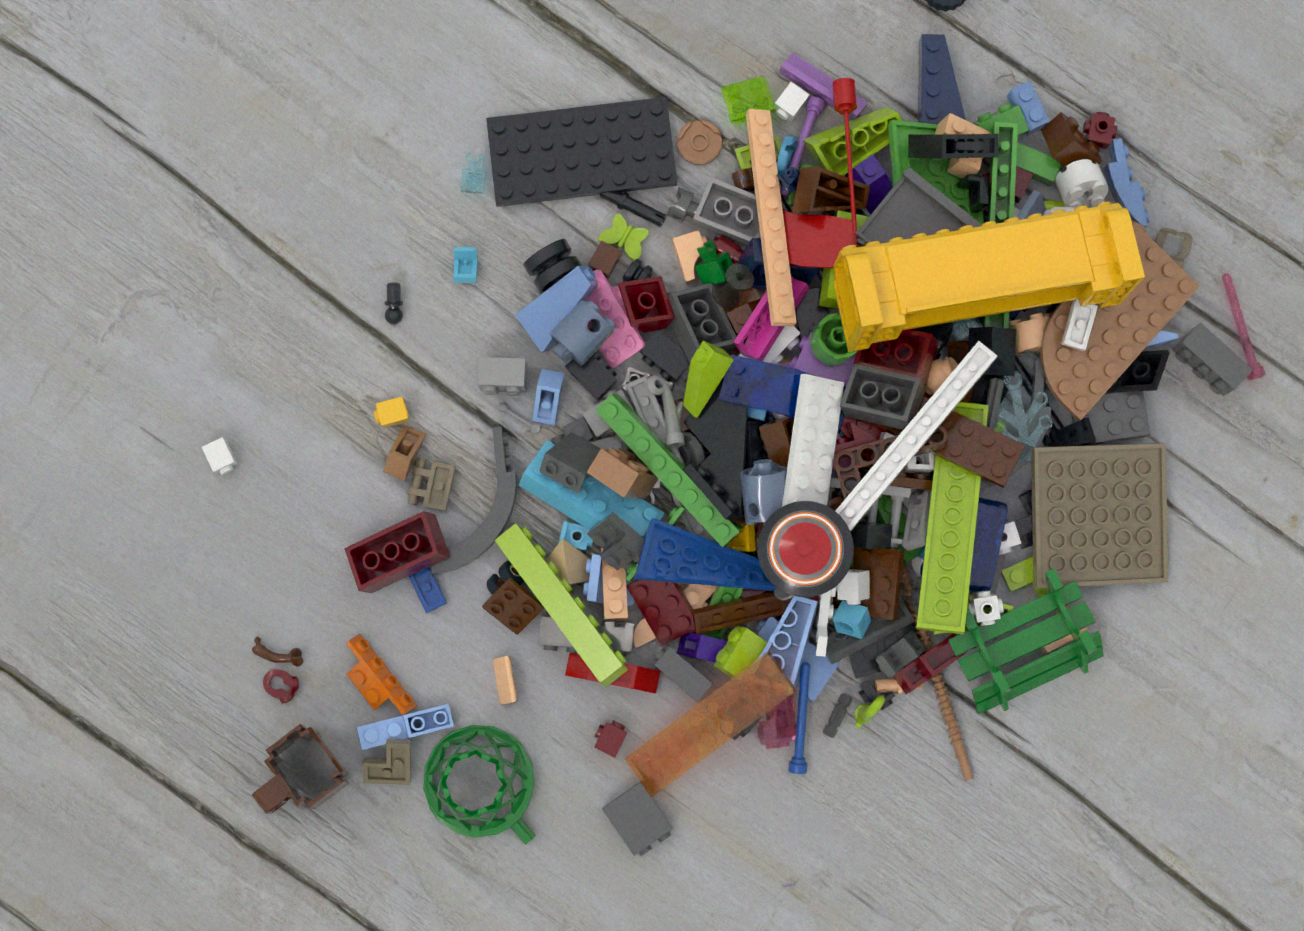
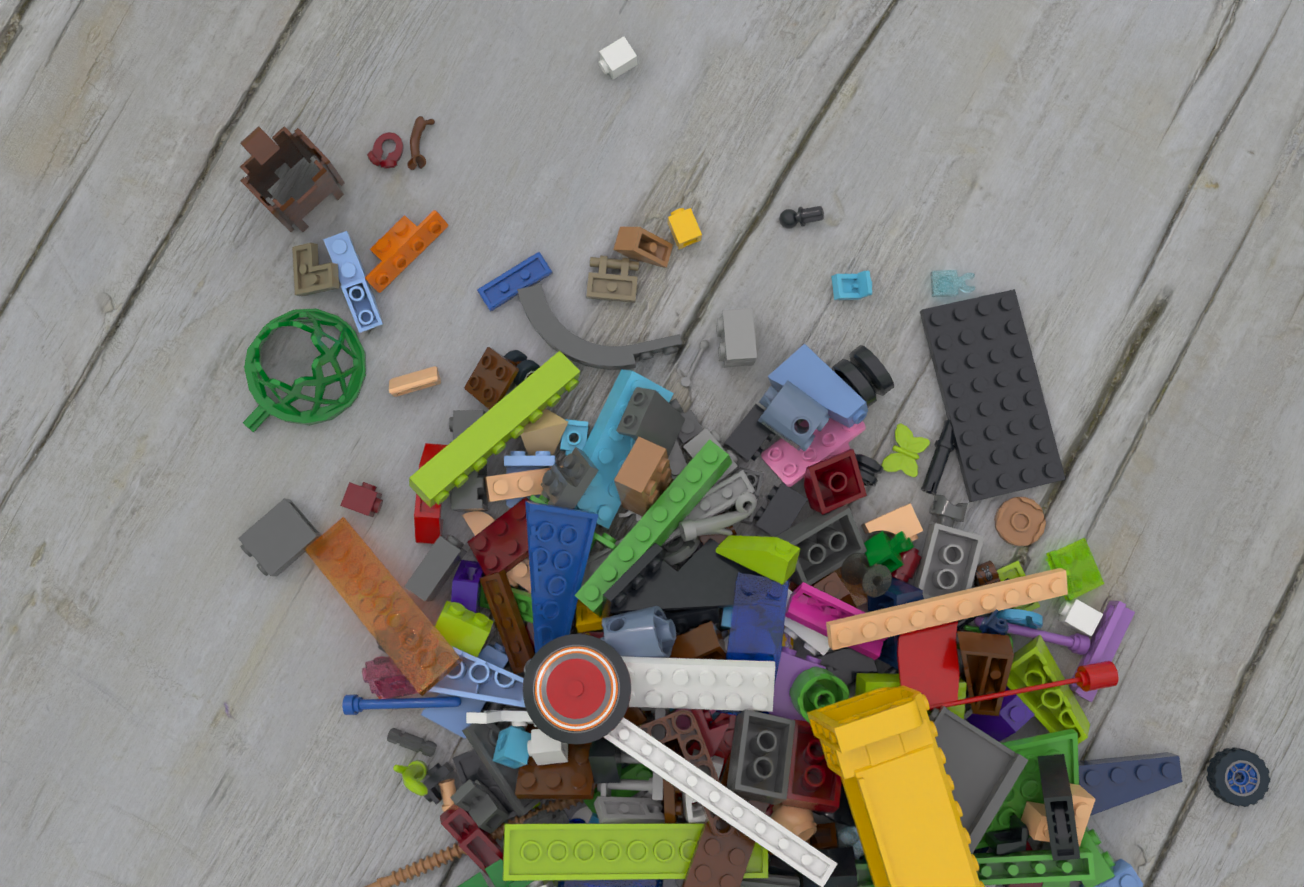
camera: 80 degrees right, 0 degrees up
(397, 552) = (534, 249): dark red brick -> none
(548, 396) = (721, 390): light blue slope -> none
(605, 259) = (877, 433): reddish brown brick -> none

